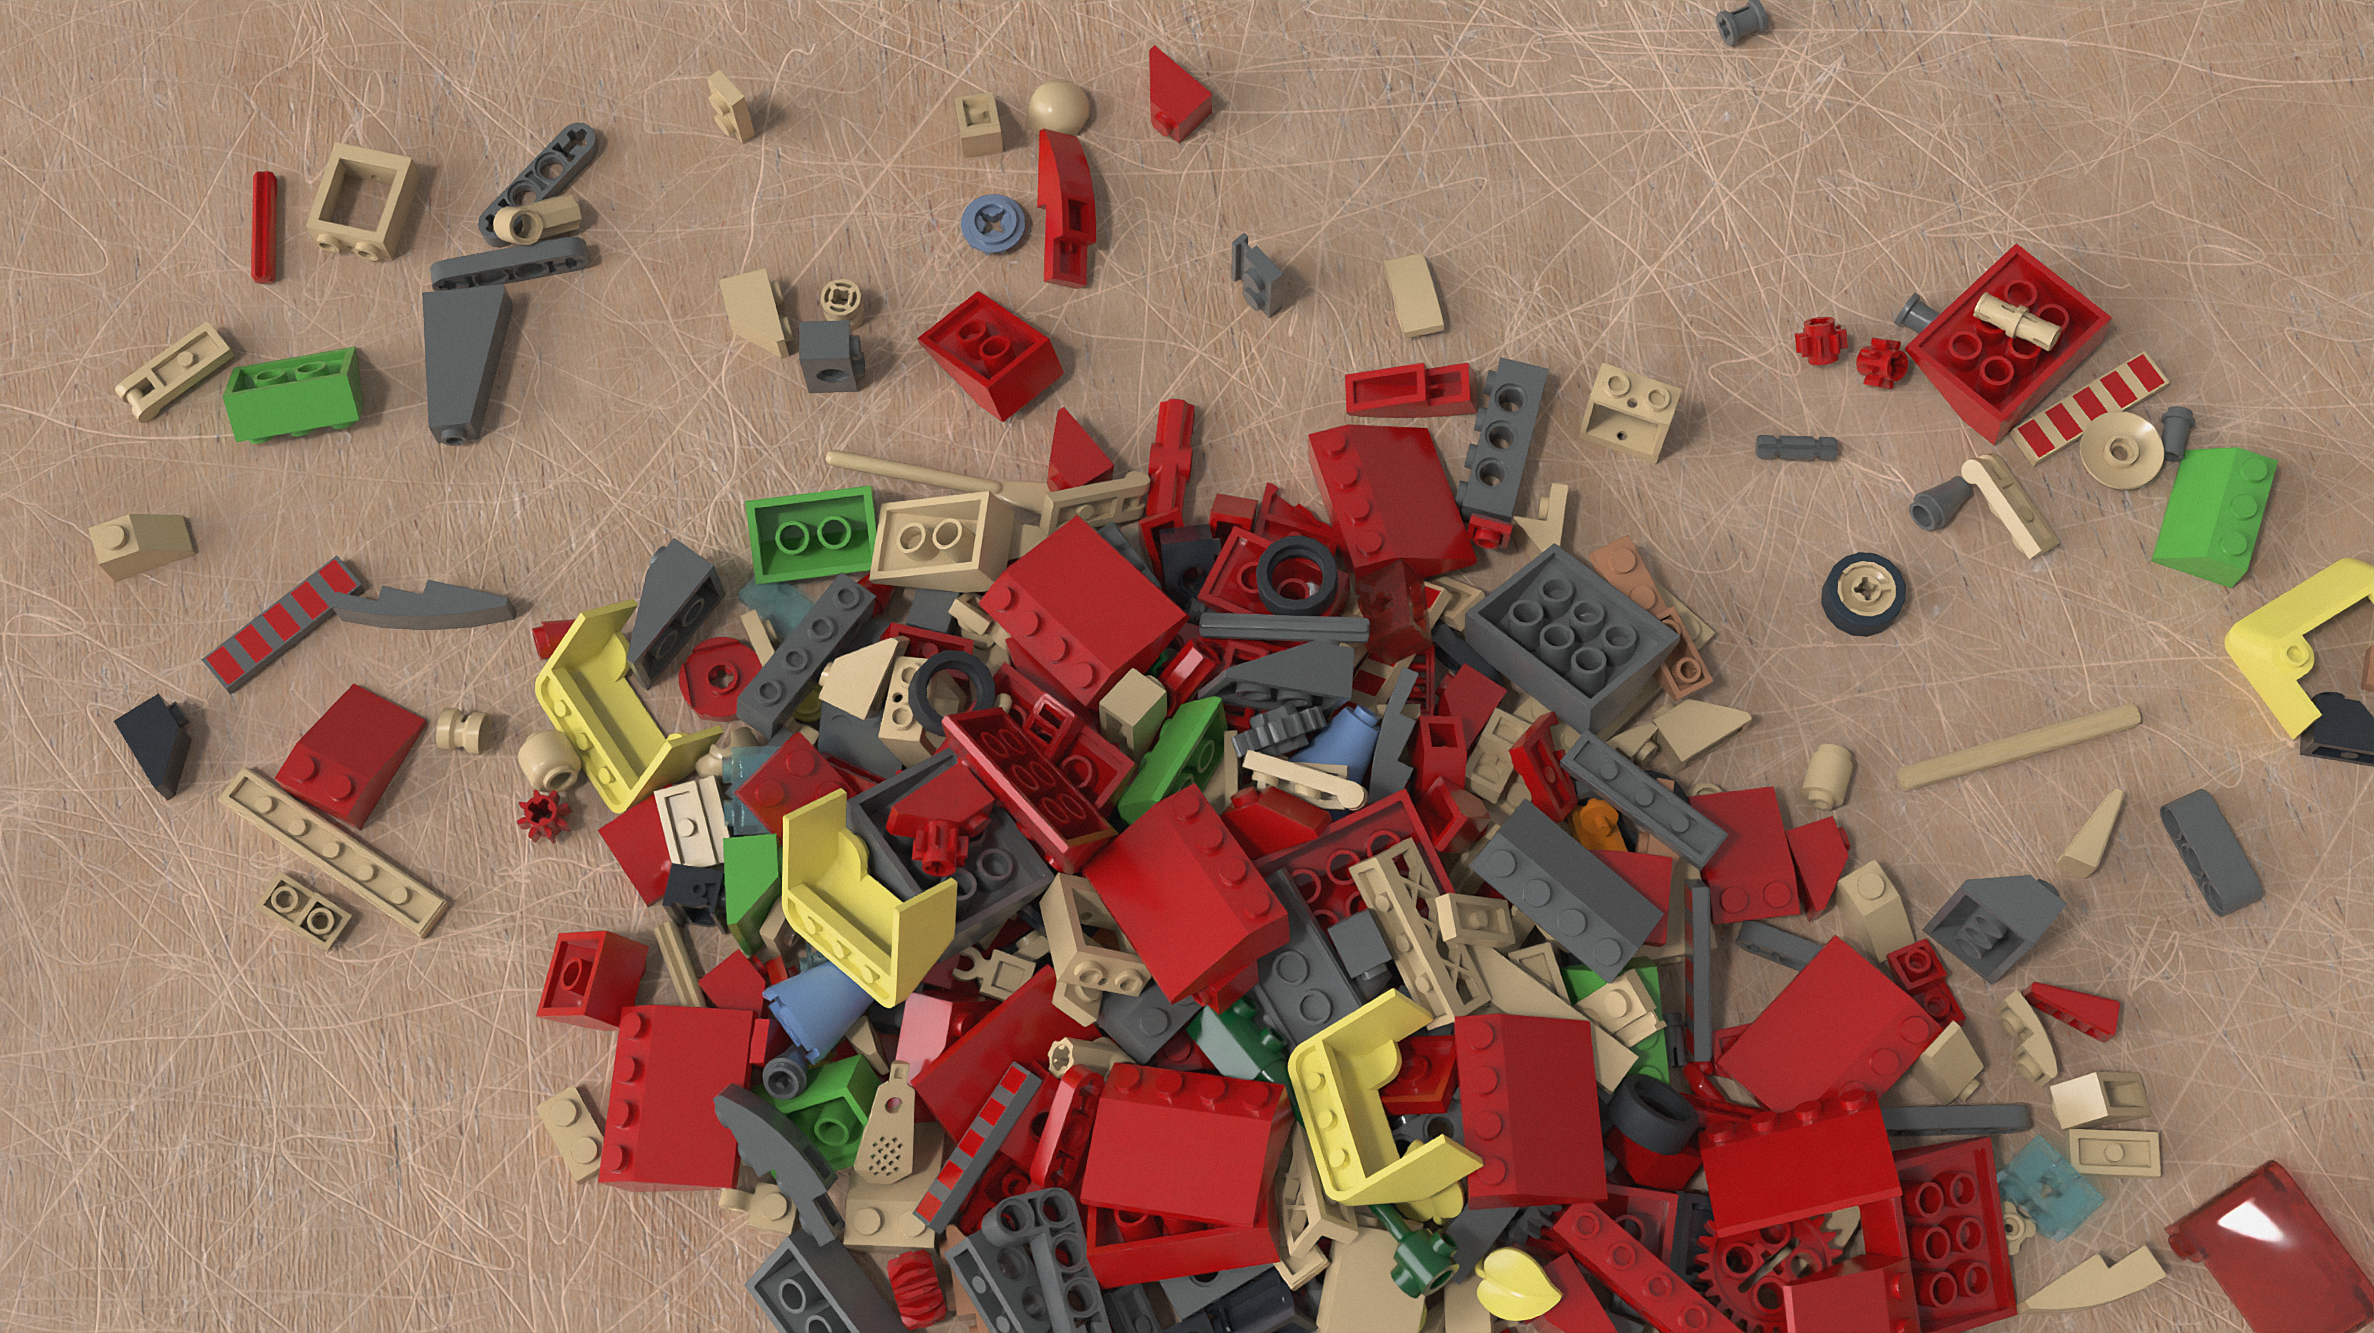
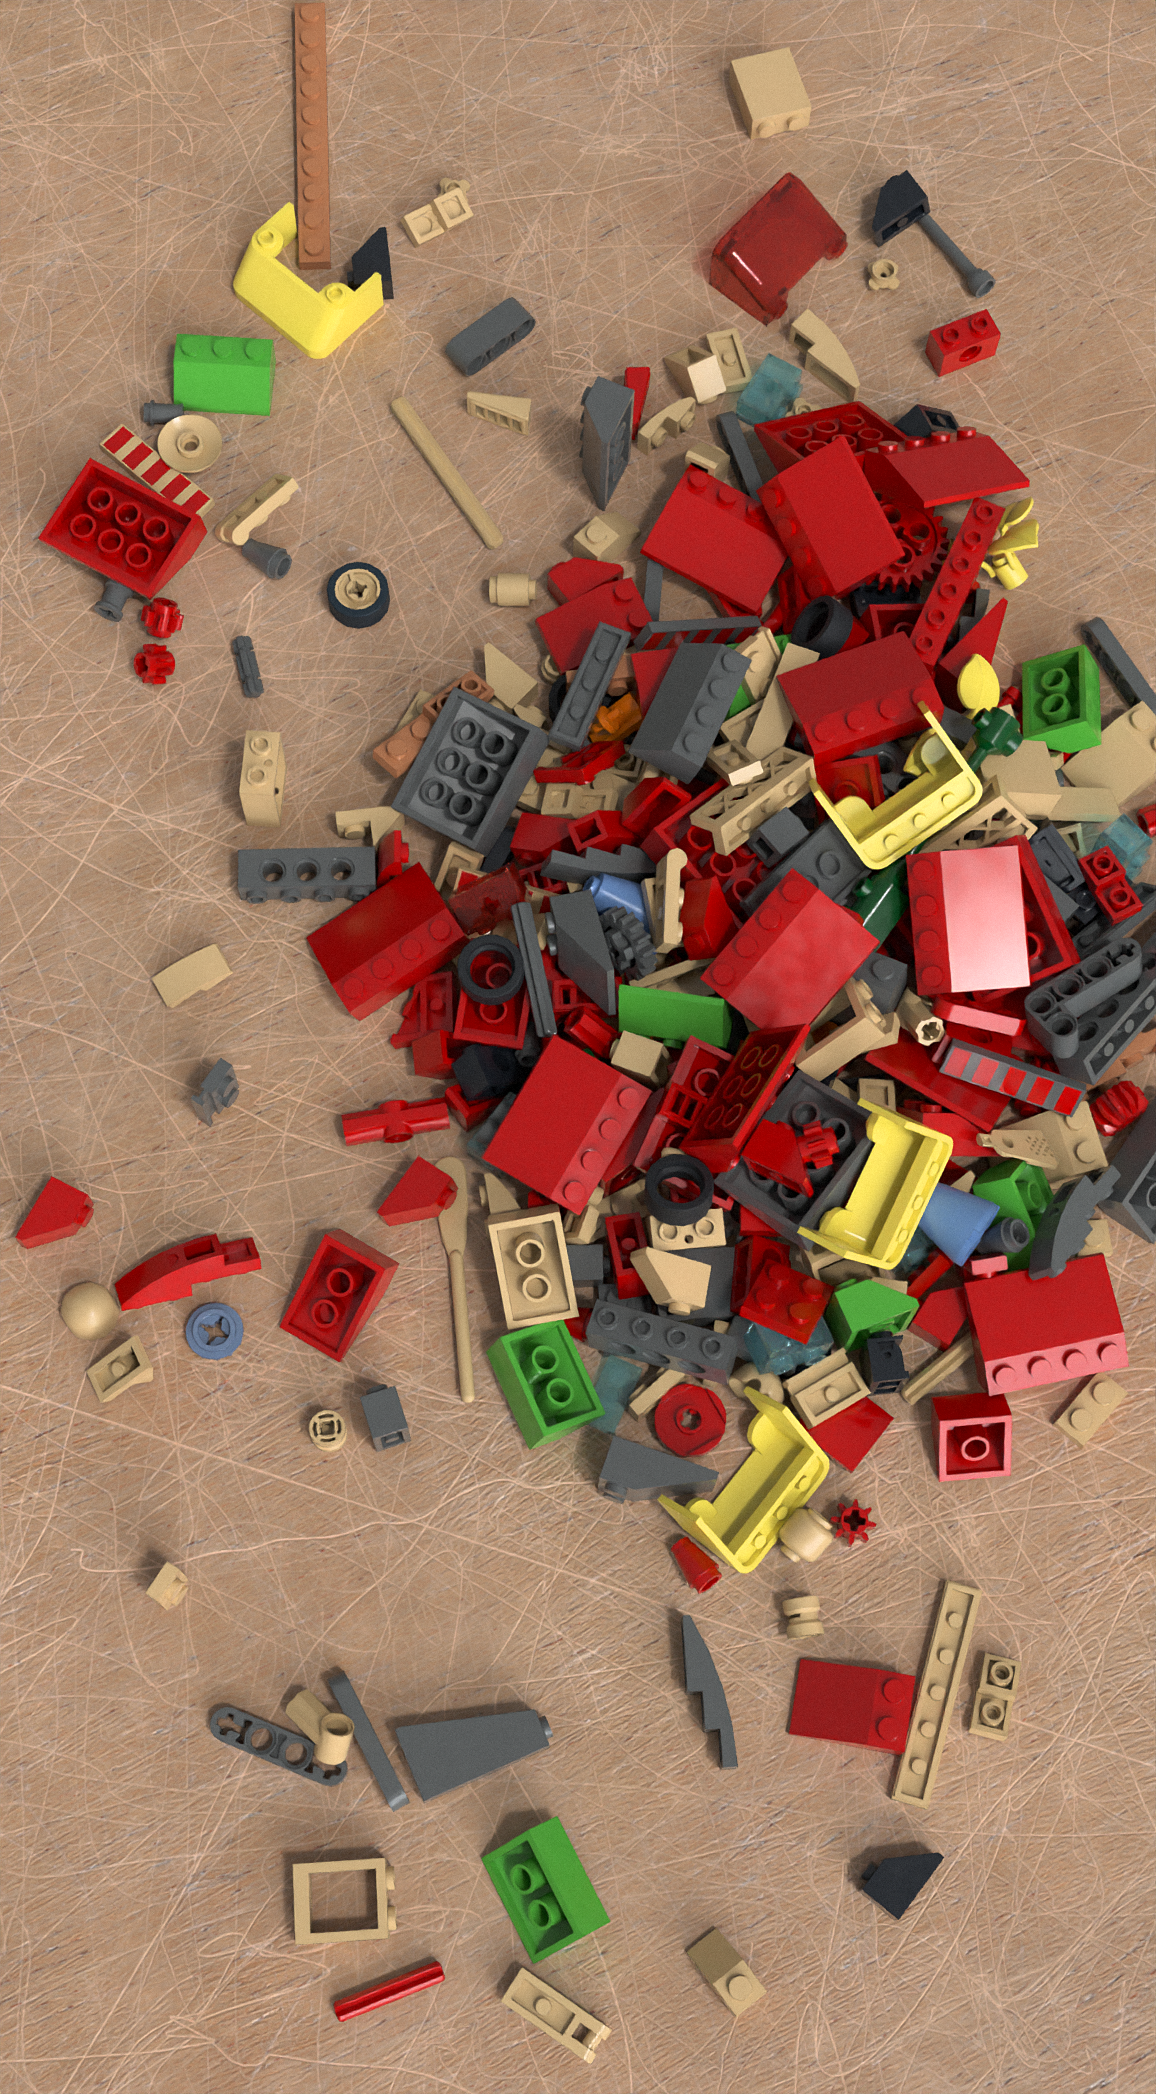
camera: 110 degrees left, 0 degrees up
(281, 625) = (757, 1816): tile -> none
(753, 310) = (353, 1505): tan slope -> none
(1096, 503) = (456, 1161): tan plate -> none
(1412, 392) = (280, 954): red slope -> none
(1923, 979) = (649, 499): red slope -> none
(2017, 321) = (114, 517): tan pin -> none

